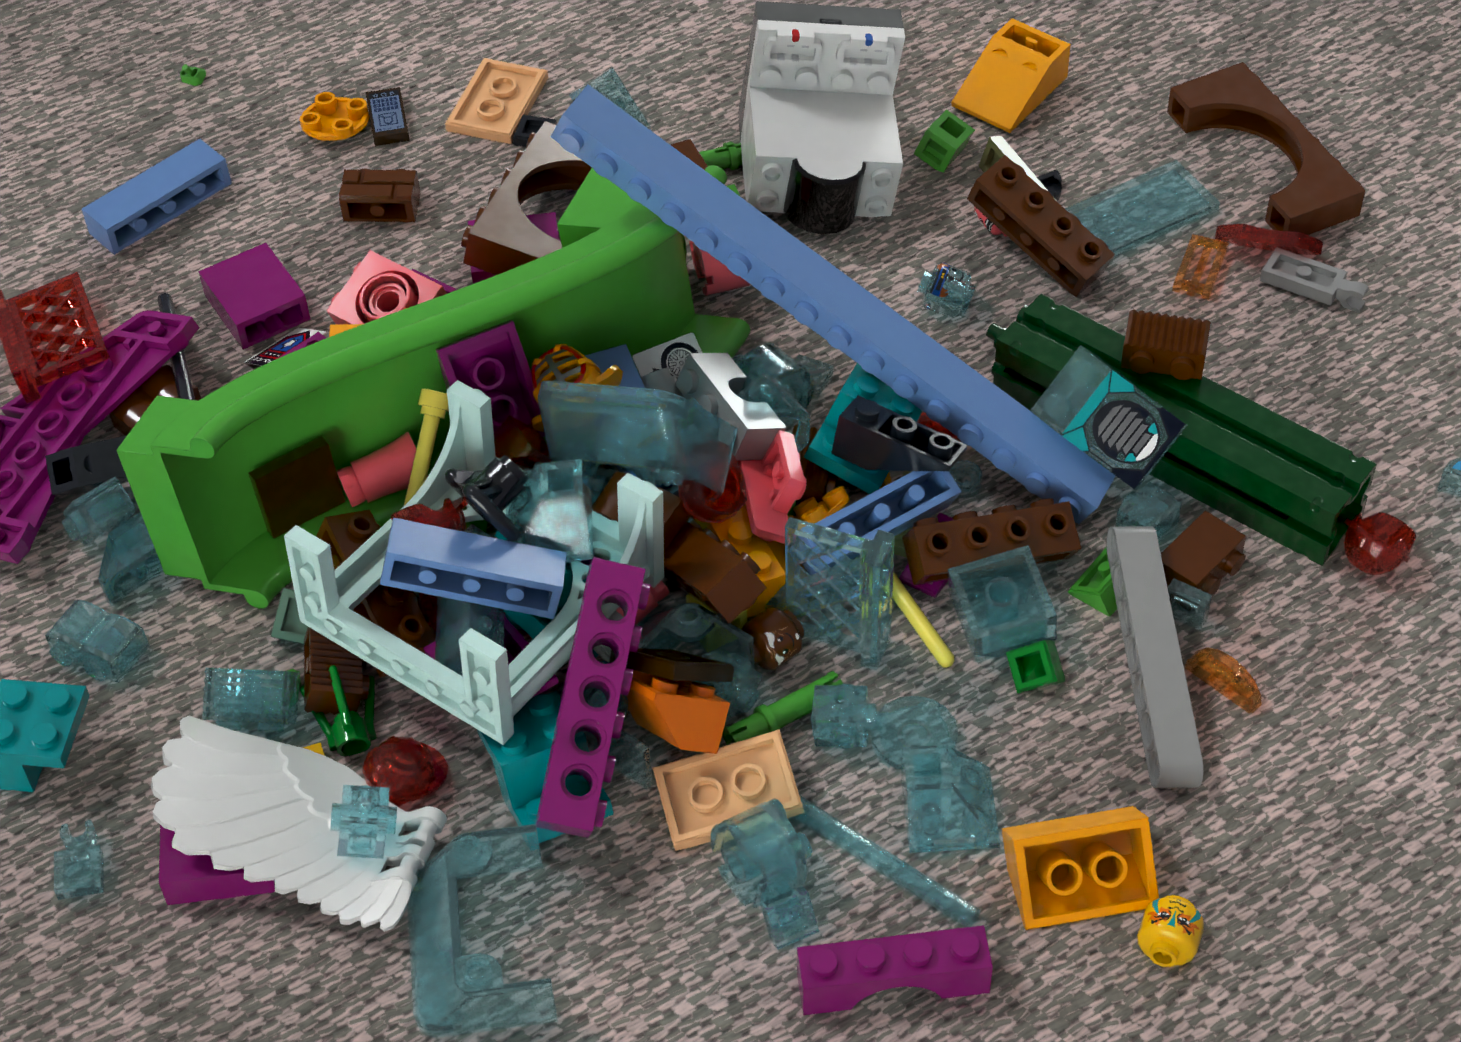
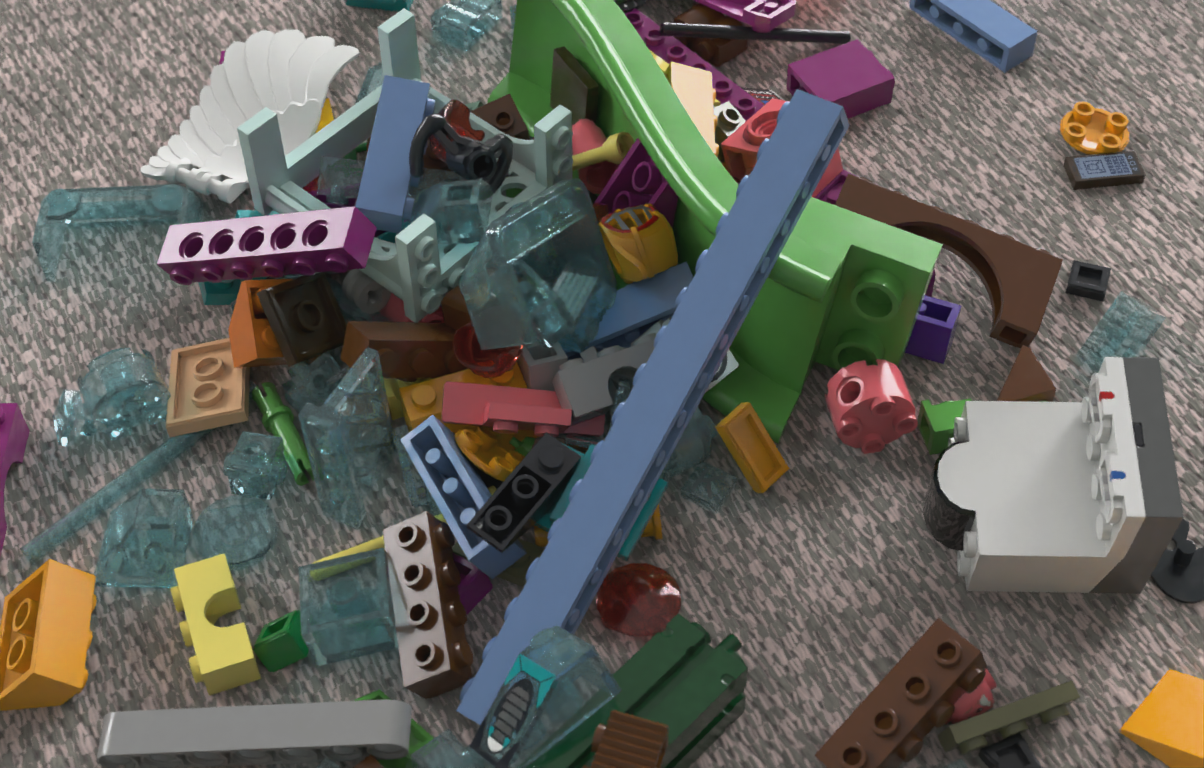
camera: 95 degrees right, 0 degrees up
(80, 866) = (270, 20): clear light blue plate -> none
(192, 75) = (1155, 37): bright green rock -> none
(363, 821) = (218, 138): clear light blue brick -> none
(379, 195) = (976, 160): reddish brown brick -> none
(496, 100) = (1139, 251): light nougat tile -> none
(776, 332) = (752, 447): none -> light orange tile
(944, 141) = (1084, 631): bright green brick -> none
(946, 290) = (821, 618): clear light blue head -> none
(1005, 736) = (222, 653): none -> light yellow arch

